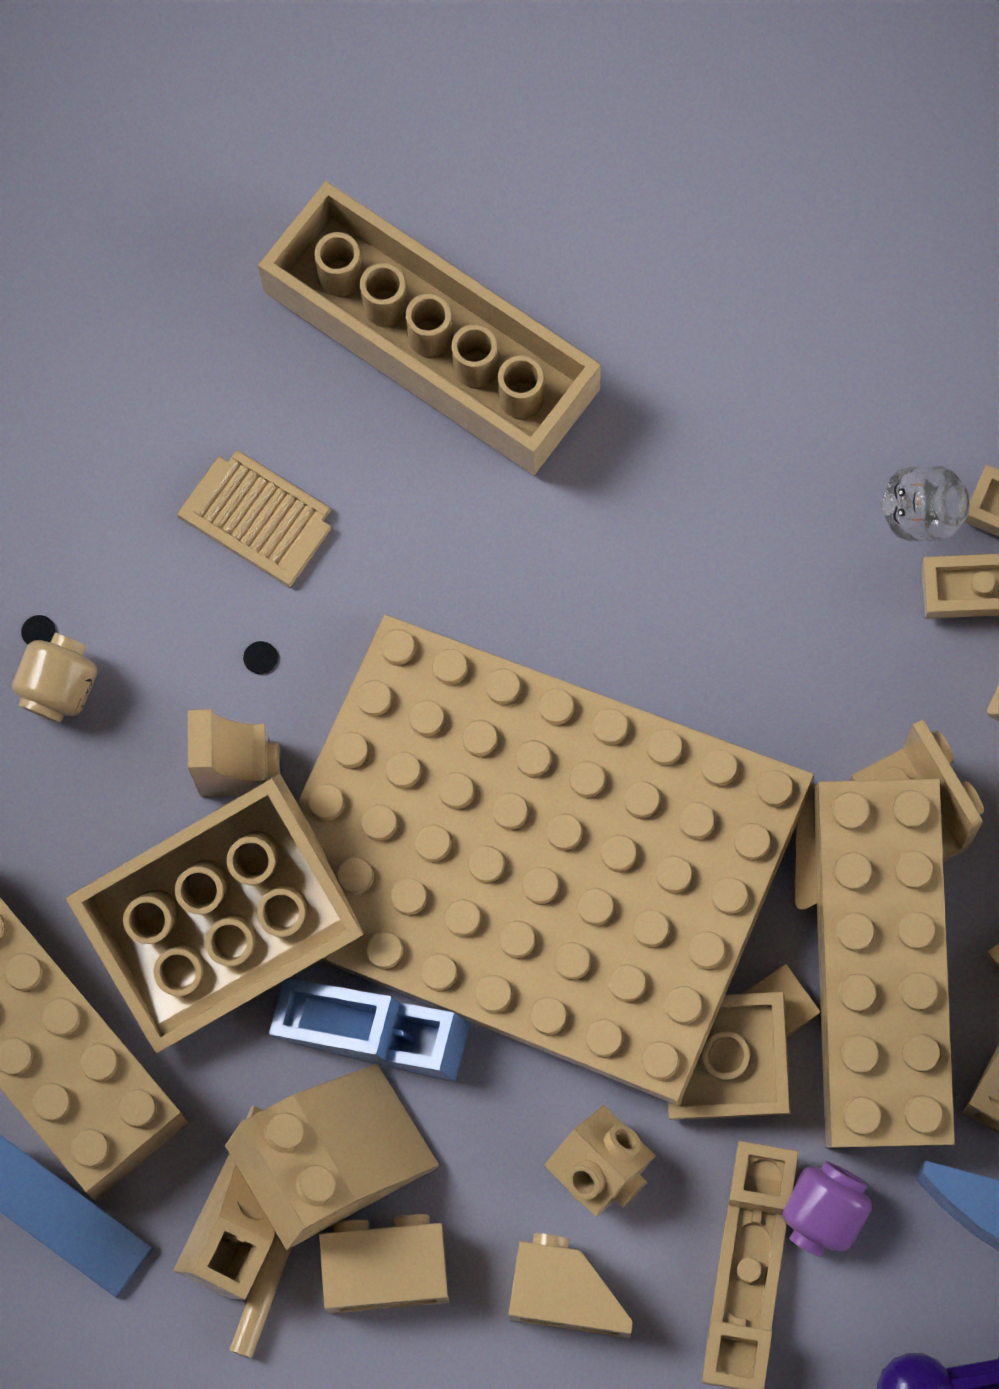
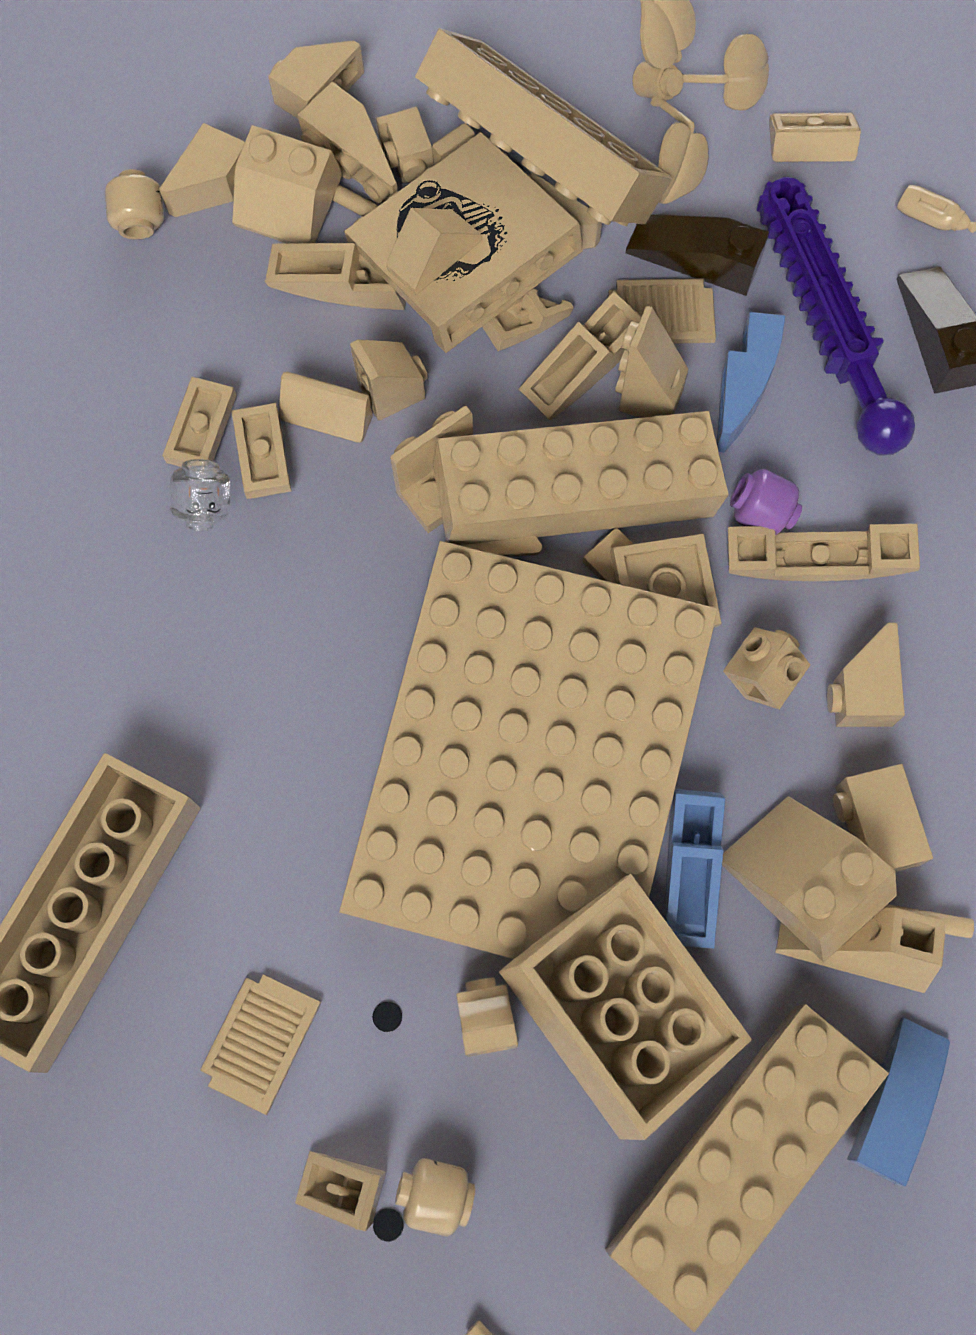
camera: 100 degrees left, 0 degrees up
(80, 584) = (340, 1190): none -> tan slope

